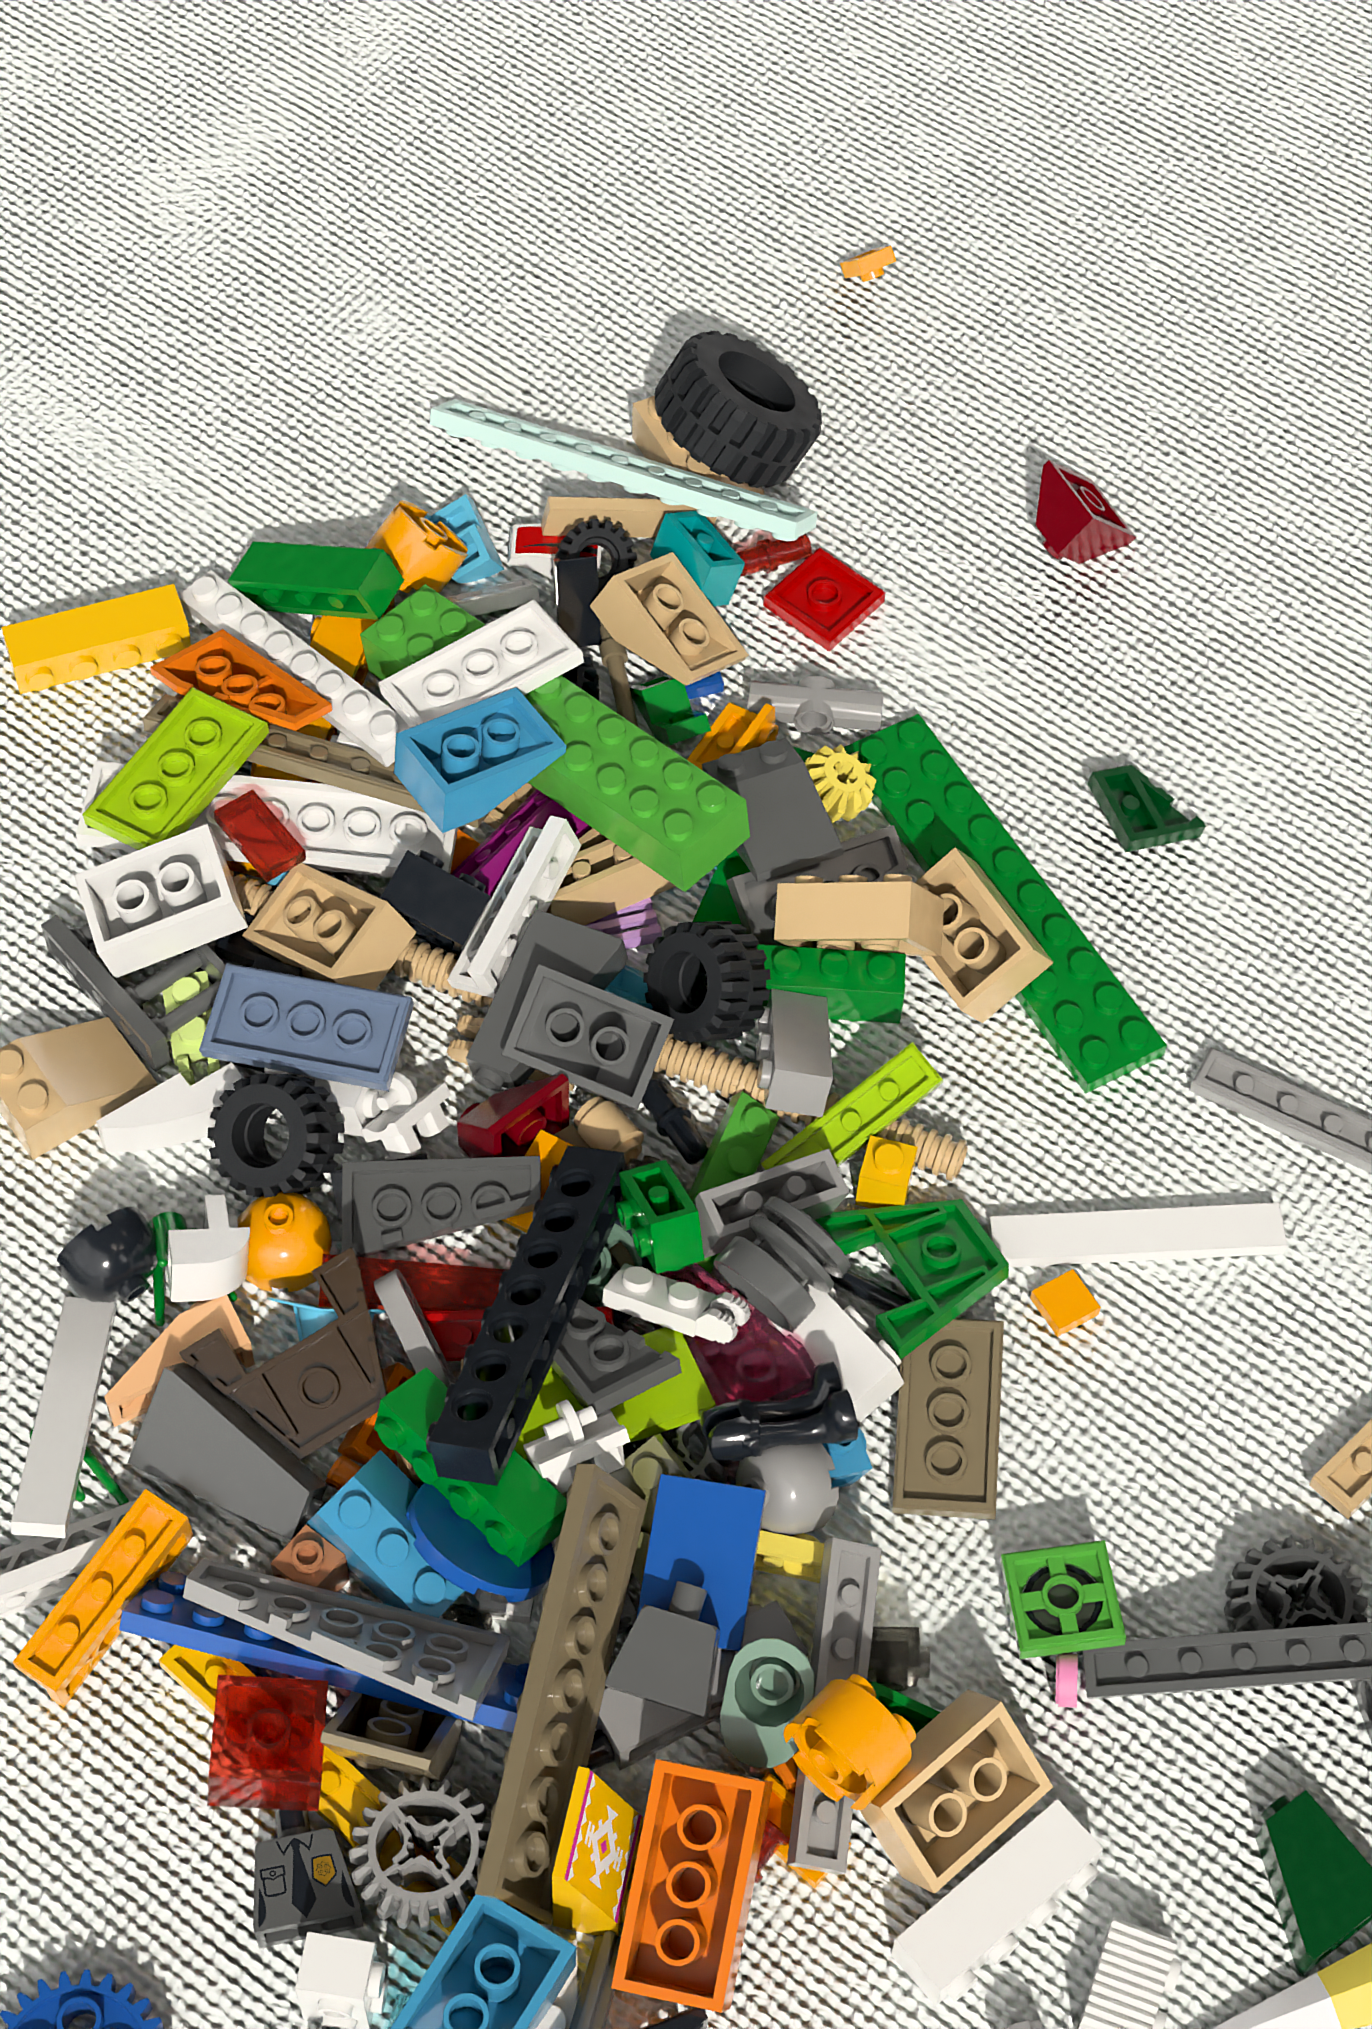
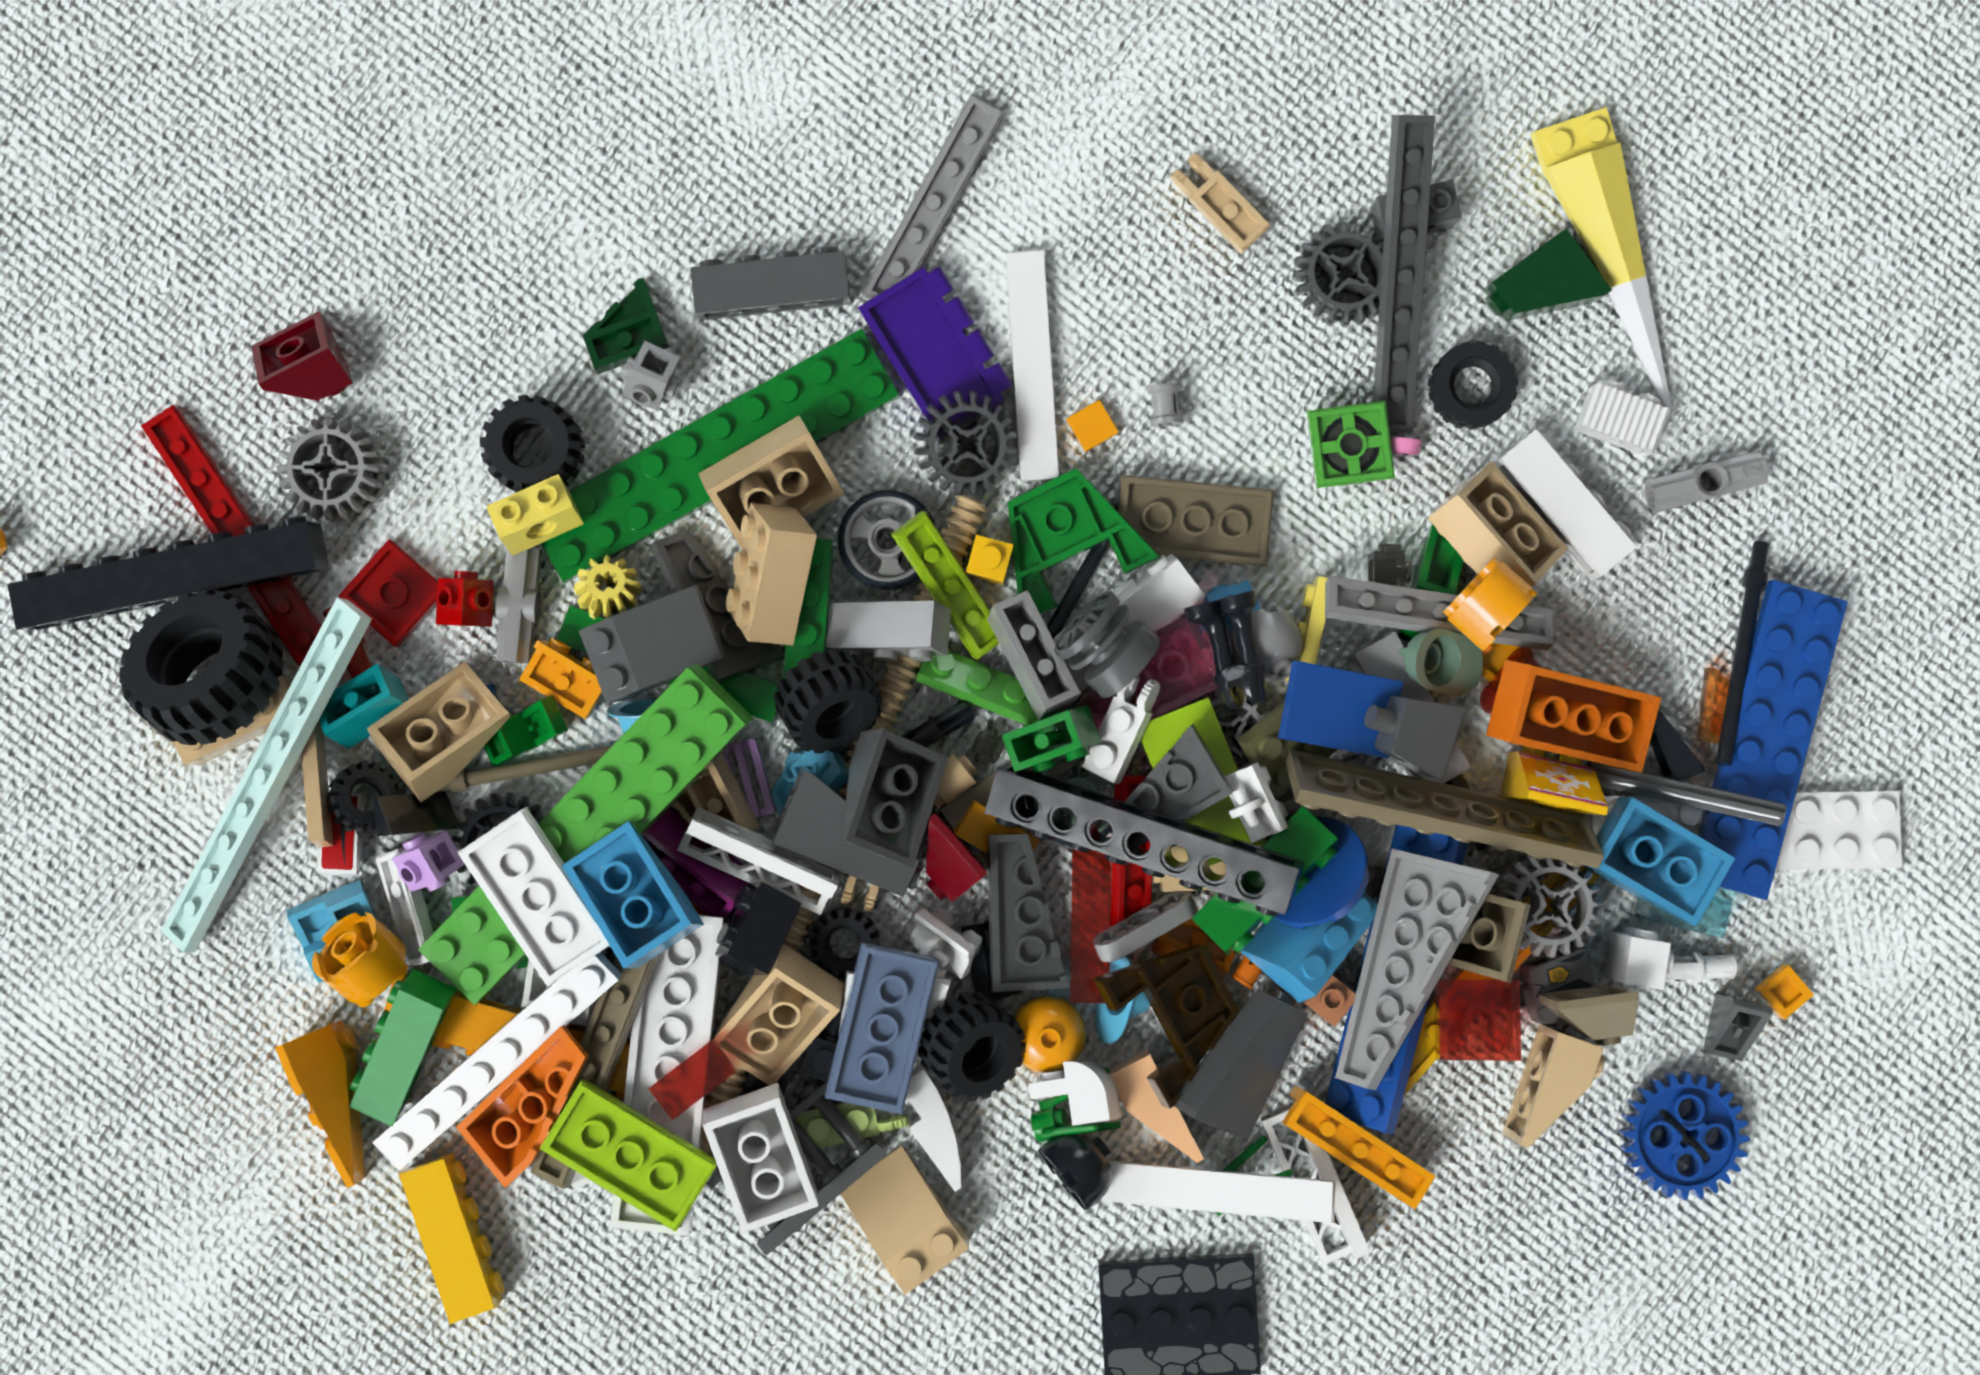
camera: 95 degrees left, 30 degrees up
(186, 1861) = (1553, 1078): none -> tan slope
(267, 1894) = (1597, 1011): none -> dark tan slope
(294, 511) = (323, 1069): none -> light orange wedge
(439, 1012) = (823, 931): none -> black tyre
(519, 587) = (427, 861): none -> lavender brick
(817, 636) = (464, 600): none -> red brick
(848, 436) = (161, 577): none -> black brick
(894, 460) = (225, 513): none -> red tile
(918, 703) = (534, 515): none -> light yellow brick
(925, 1035) = (857, 526): none -> light grey wheel
(960, 539) = (330, 454): none -> light grey gear
(992, 741) = (511, 422): none -> black tyre
(1053, 1116) = (977, 430): none -> dark grey gear
(1088, 823) = (650, 376): none -> light grey brick
(1099, 1384) = (1165, 405): none -> light grey bush
(1144, 1120) = (929, 345): none -> dark purple hinge
(1185, 1747) = (1502, 380): none -> black tyre
(1211, 951) = (770, 284): none -> dark grey brick

